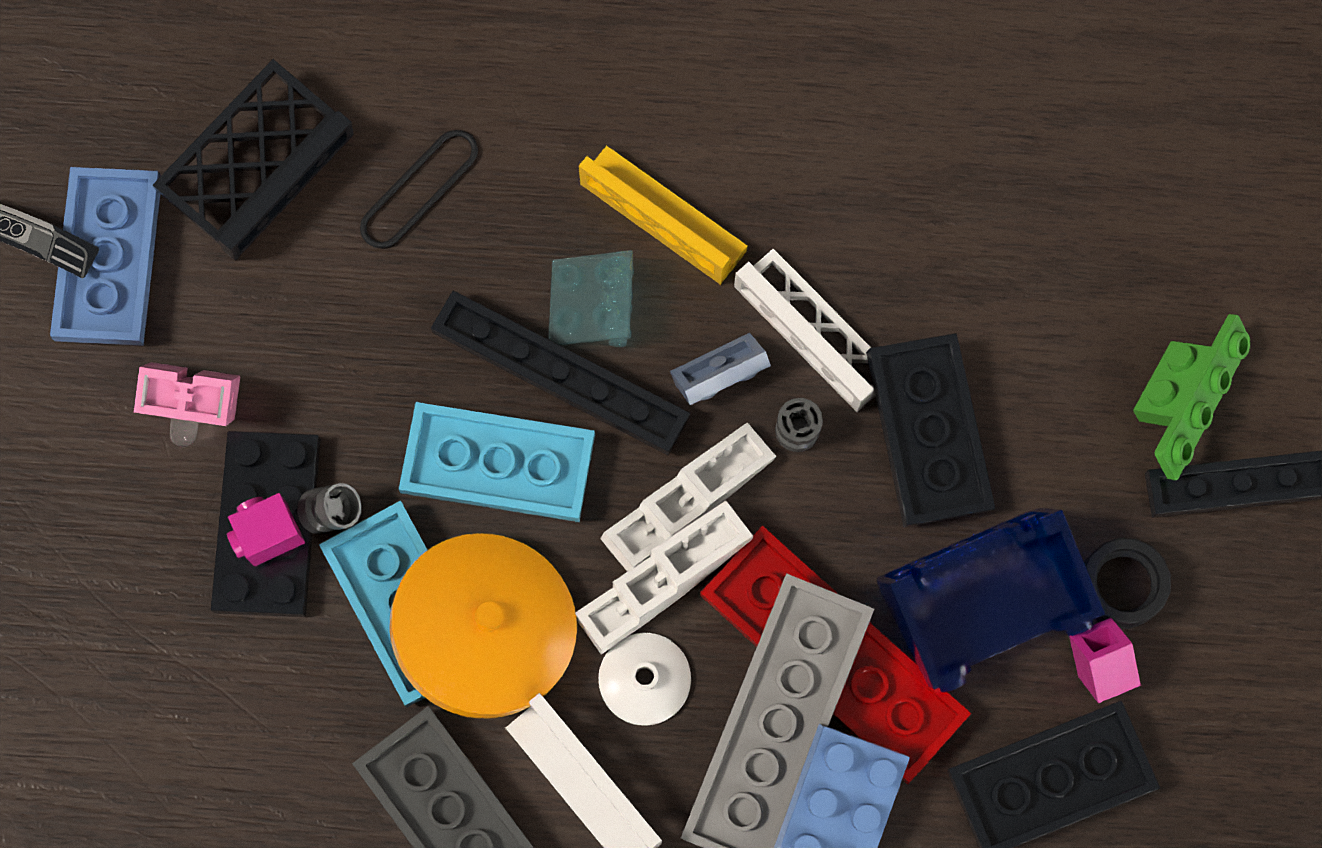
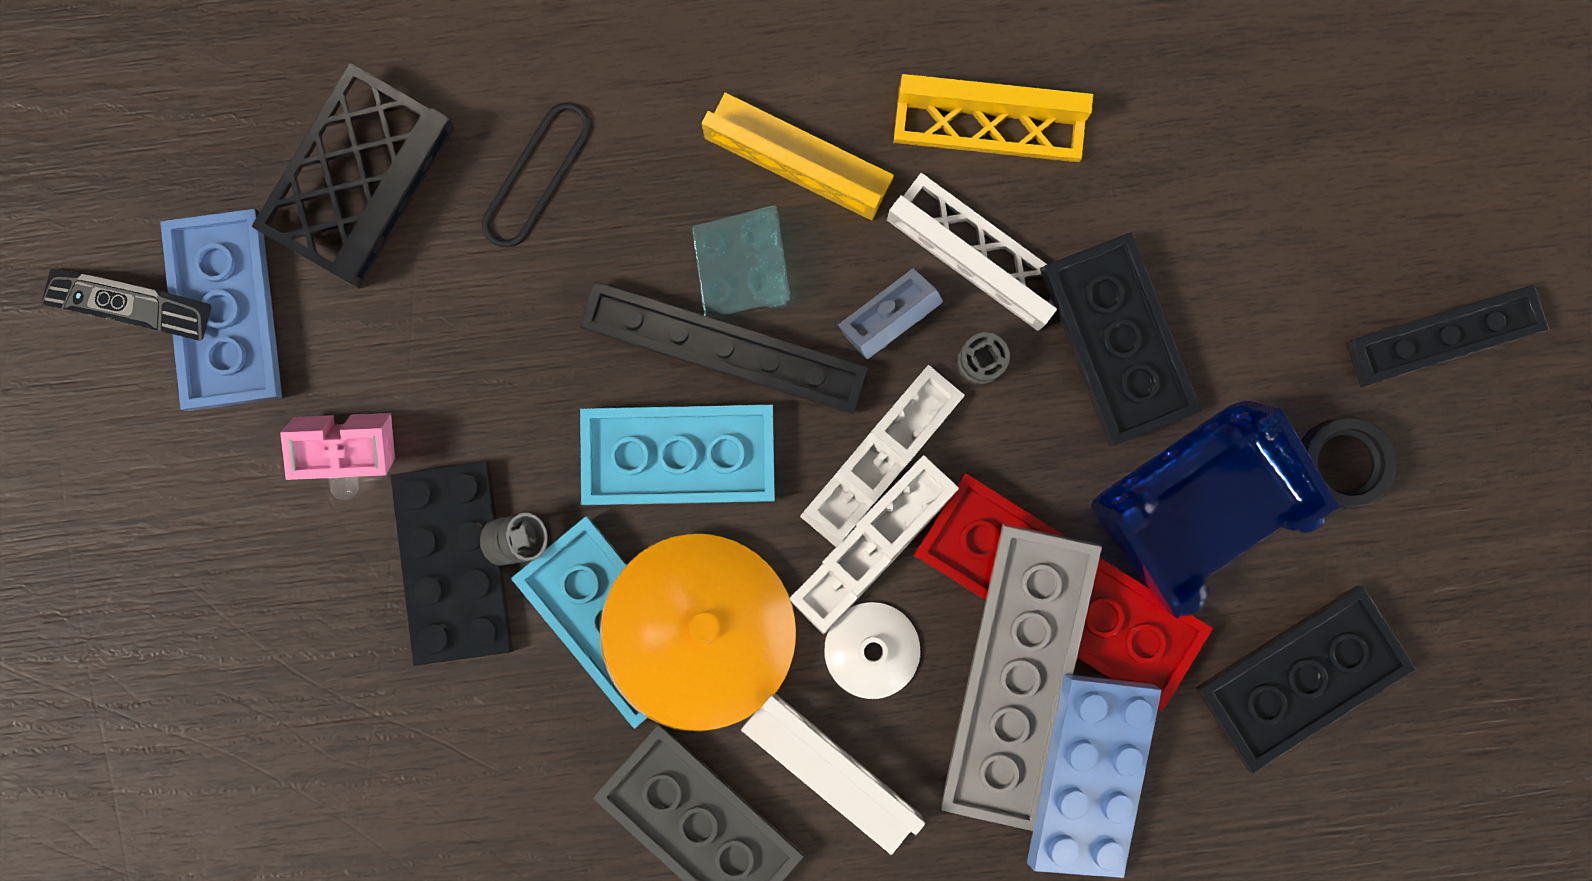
camera: 10 degrees left, 10 degrees up
(263, 529) = (449, 577): dark pink brick -> none
(853, 196) = (992, 100): none -> yellow fence
(1105, 660) = (1342, 550): dark pink brick -> none
(1188, 391) = (1378, 248): bright green bracket -> none

